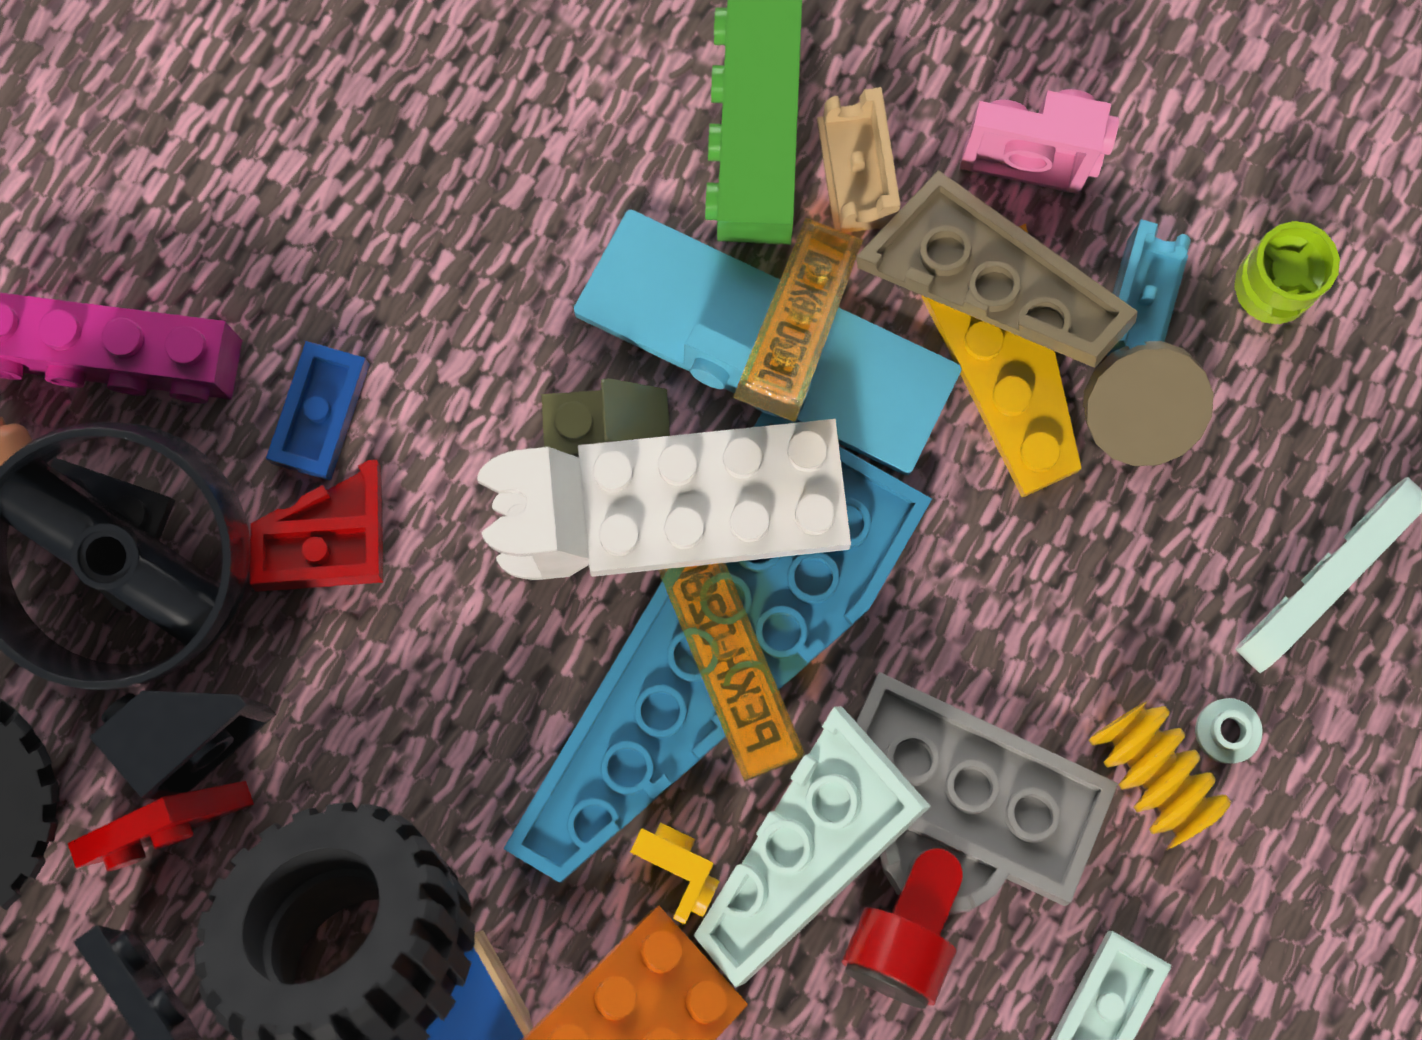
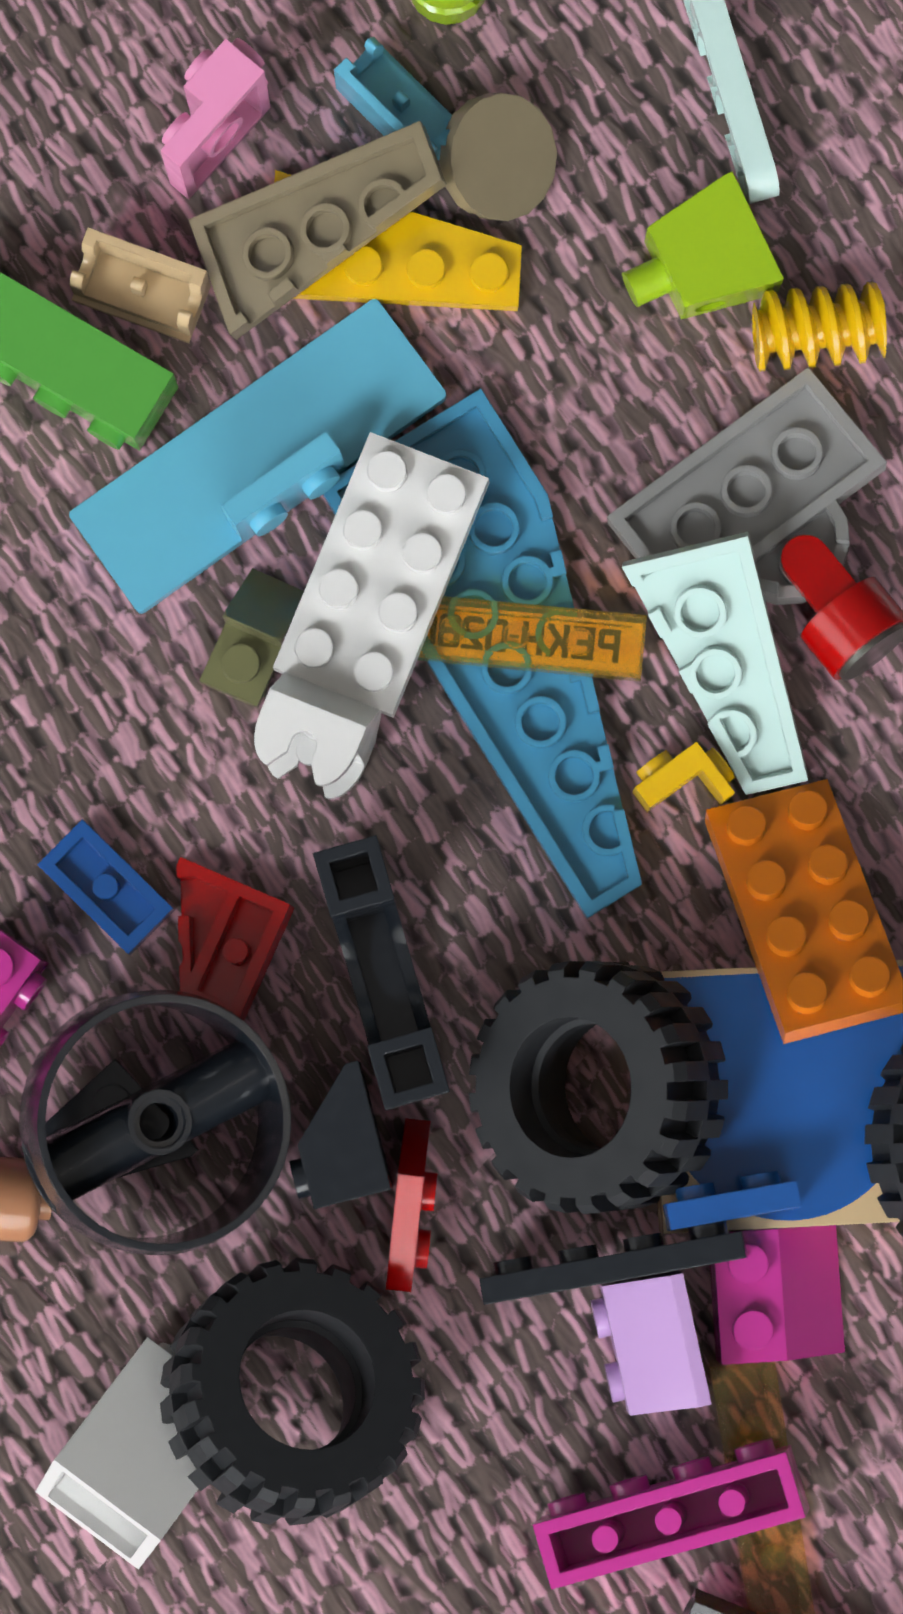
camera: 65 degrees left, 5 degrees up
(283, 750) = (381, 972): none -> black arch
(798, 320) = (263, 414): clear yellow tile -> none
(1167, 635) = (706, 254): none -> lime torso
(1210, 737) = (807, 267): light aqua plate -> none

